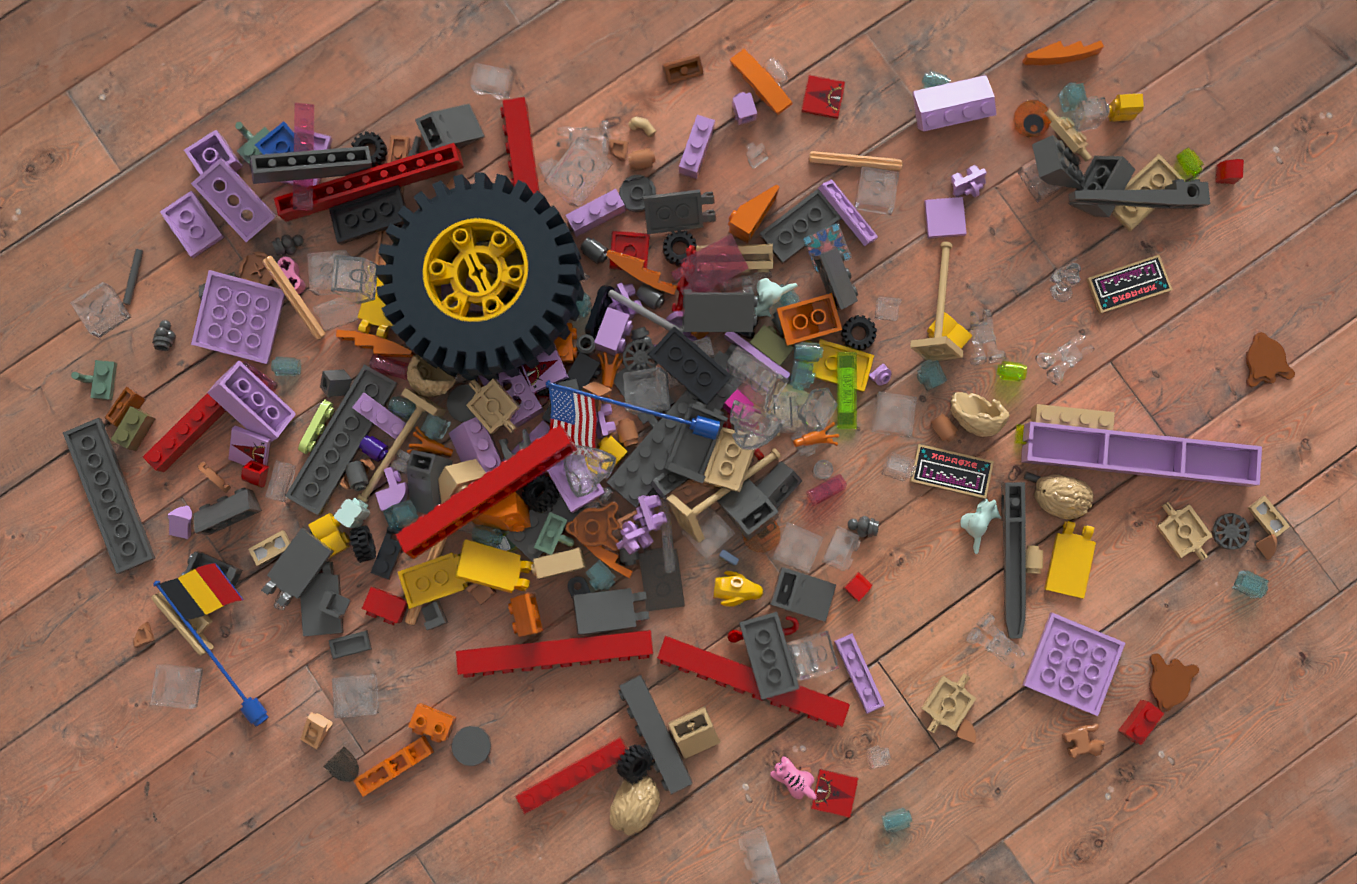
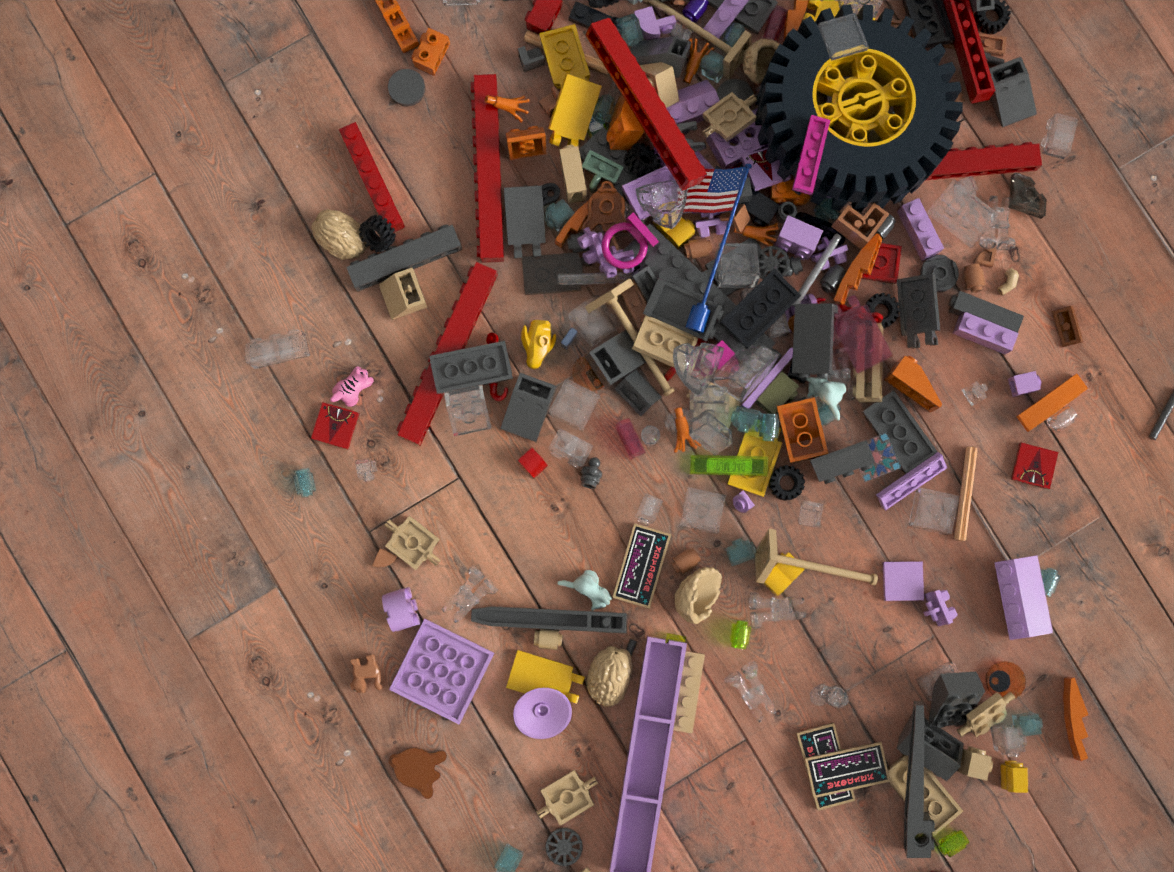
camera: 85 degrees right, 0 degrees up
(412, 293) = (843, 36): none -> clear tile
(488, 636) = (508, 104): none -> orange piece
(542, 319) = (811, 155): none -> dark pink plate
(556, 112) = (1025, 196): none -> clear smoke plate
(601, 270) = (860, 228): none -> nougat brick
(622, 491) = (638, 232): none -> dark pink tile
(675, 147) = (964, 302): none -> dark grey brick
(859, 673) = (448, 458): lavender tile -> none
(1019, 710) = (400, 609): none -> lavender brick
(1106, 560) = (542, 713): none -> lavender hat
(1117, 142) = (975, 763): none -> tan brick
(1132, 263) = (847, 769): none -> tile
(1141, 722) = (379, 732): red brick -> none

